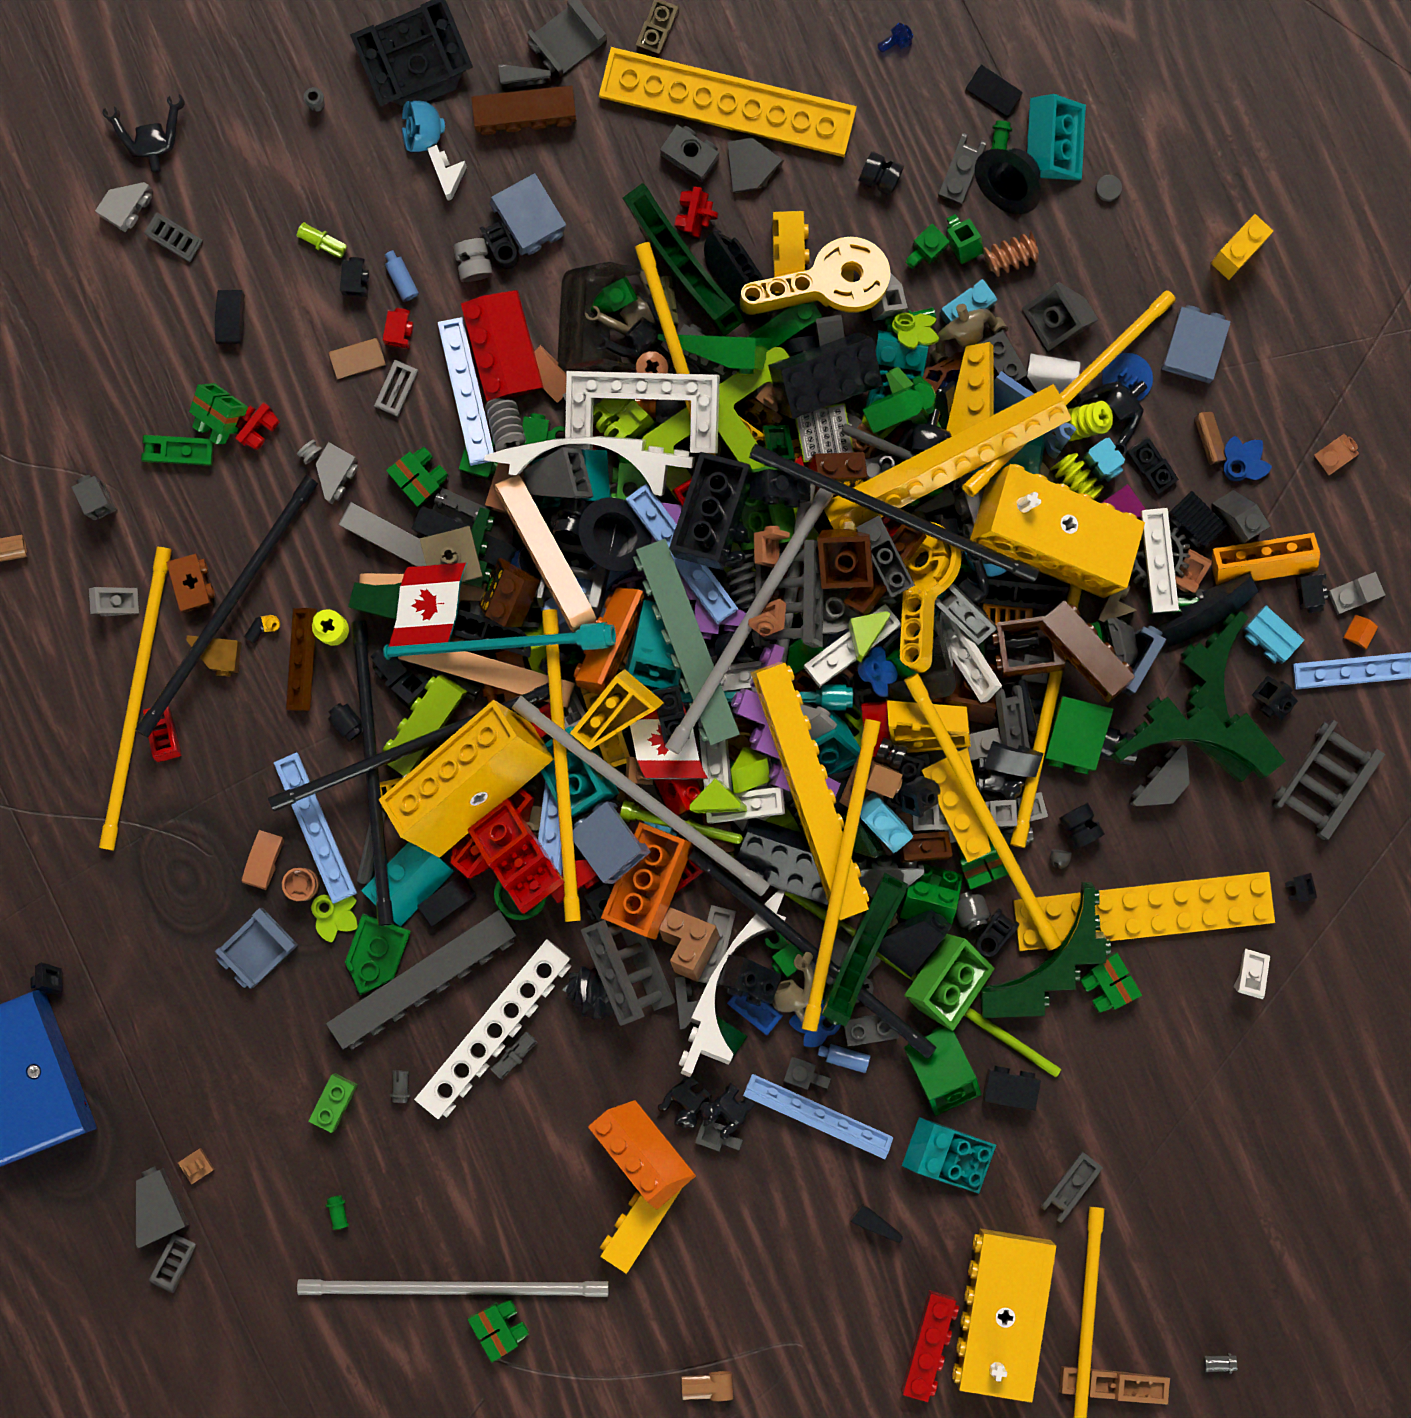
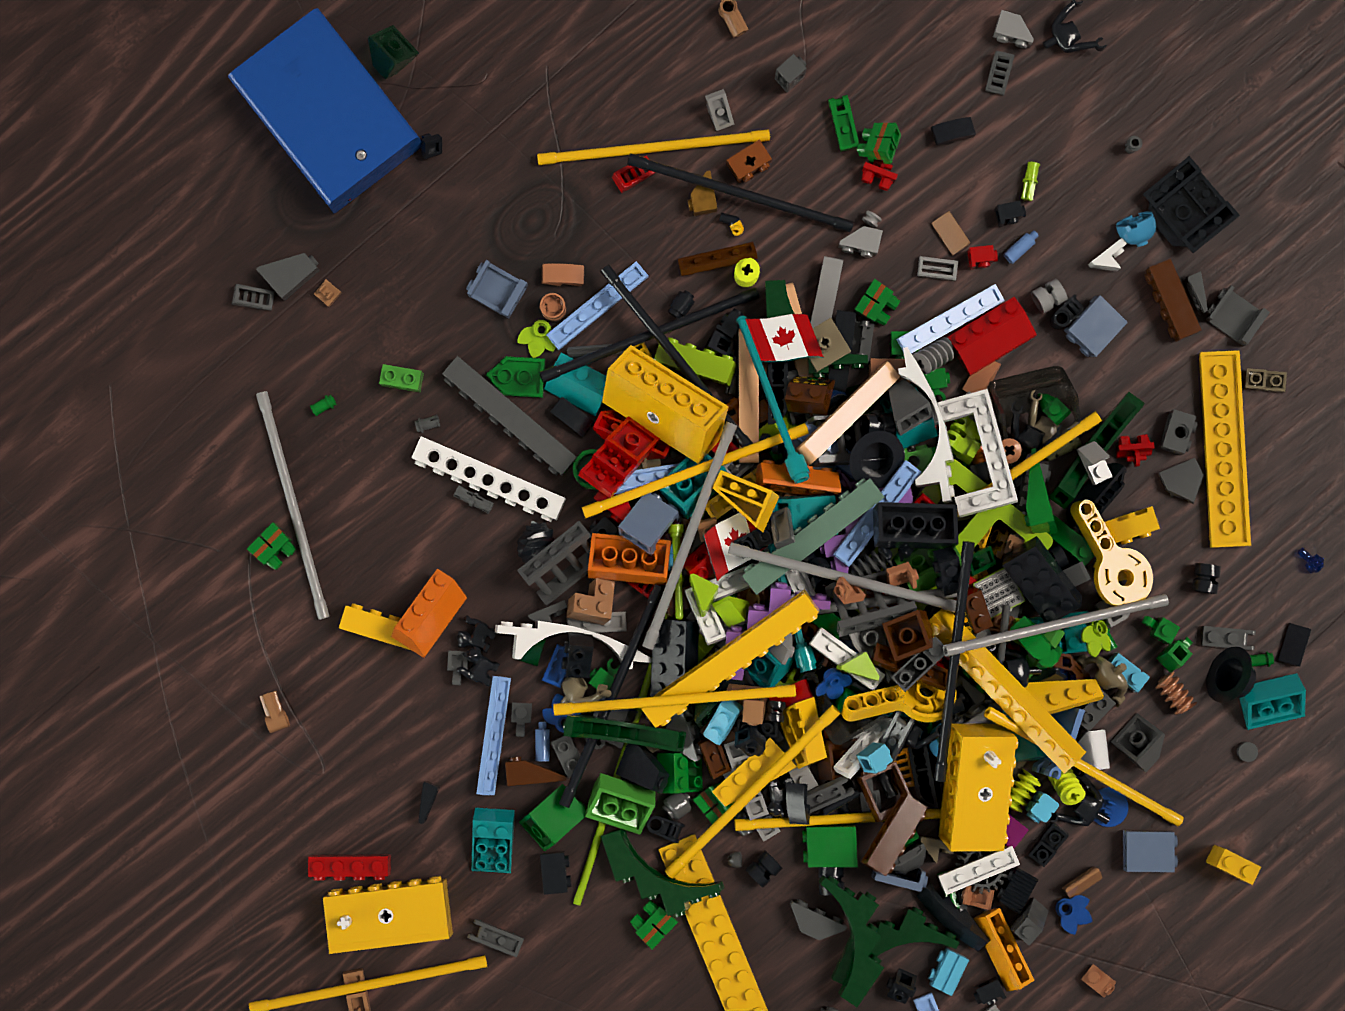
camera: 70 degrees right, 0 degrees up
(665, 677) = (782, 528): none -> dark grey tile
(696, 266) = (1094, 461): none -> light grey slope
(877, 1086) = (526, 772): none -> reddish brown slope
(879, 498) = (962, 646): none -> light grey piece
(984, 647) = (874, 758): none -> medium azure brick

